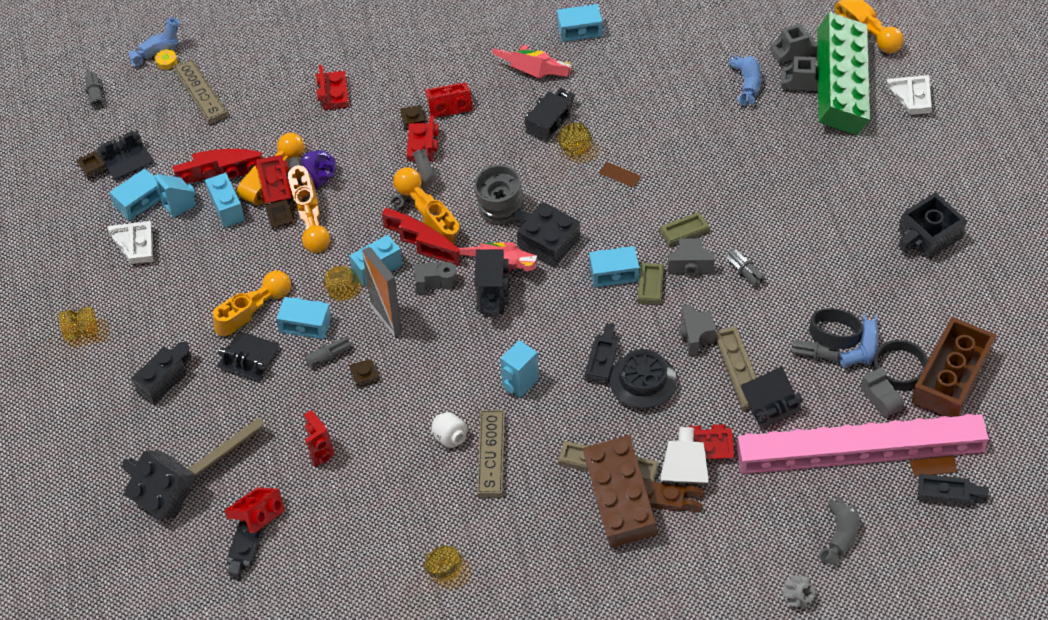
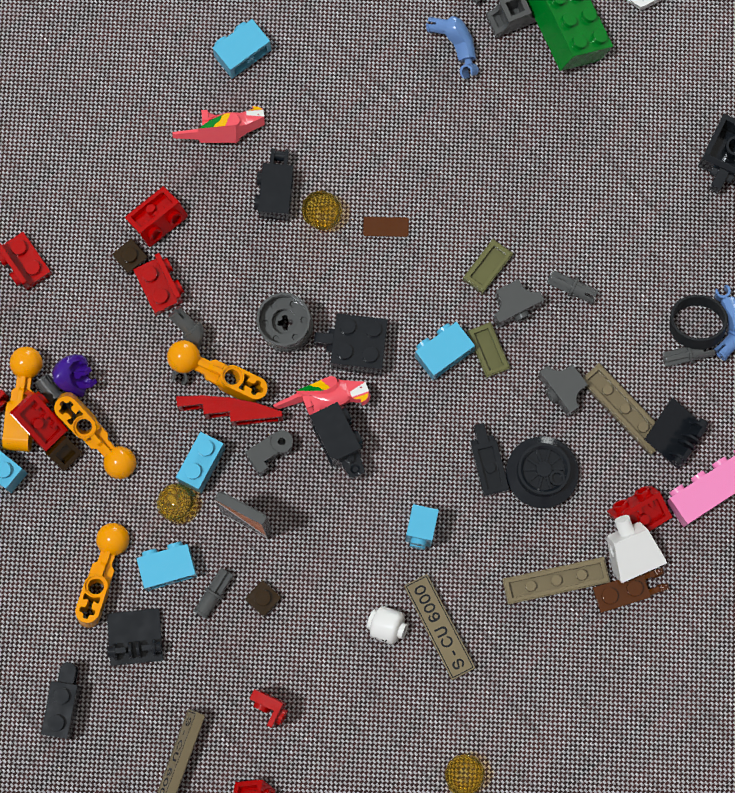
camera: 30 degrees left, 25 degrees up
(620, 491) = (591, 616): reddish brown brick -> none

